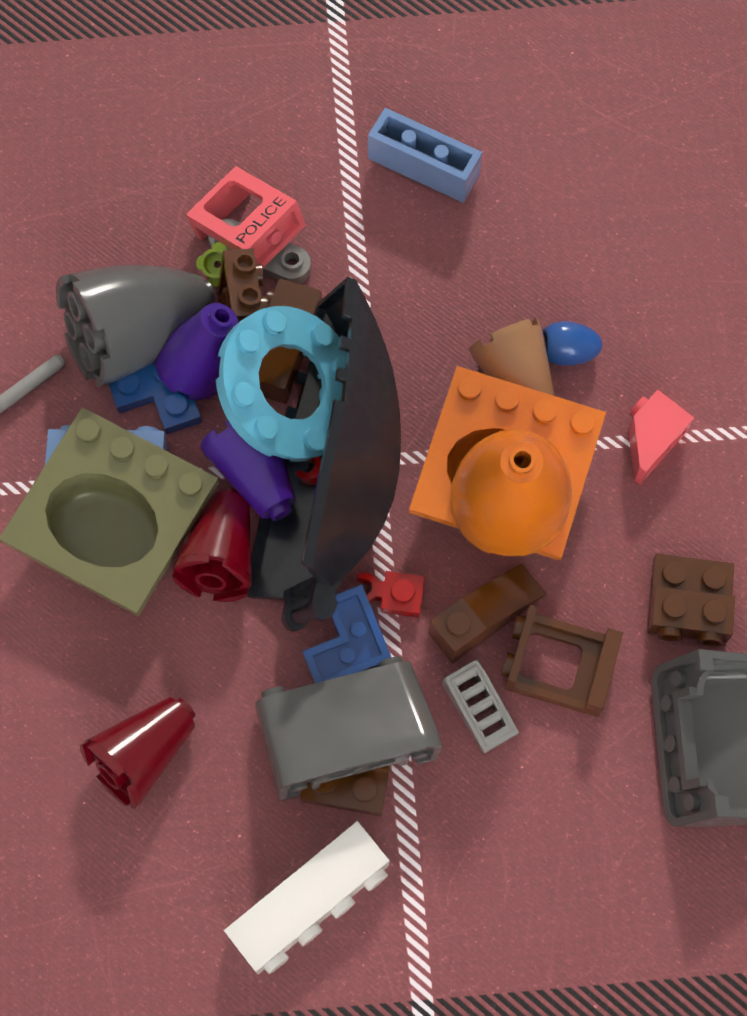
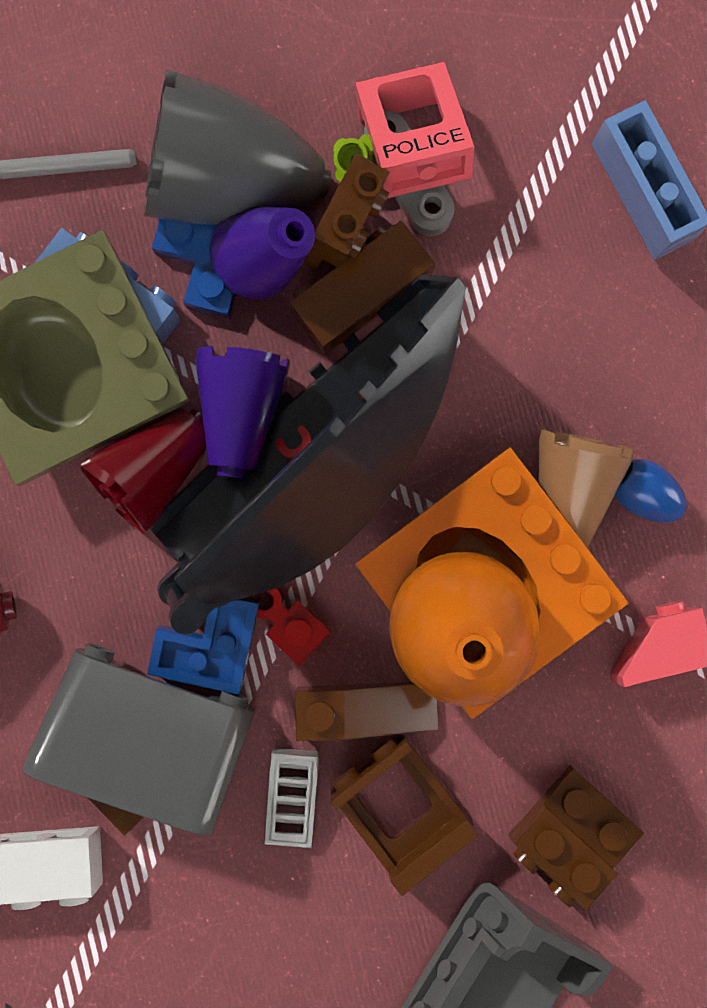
camera: 30 degrees right, 15 degrees up
(240, 385) = (273, 304): medium azure plate -> none

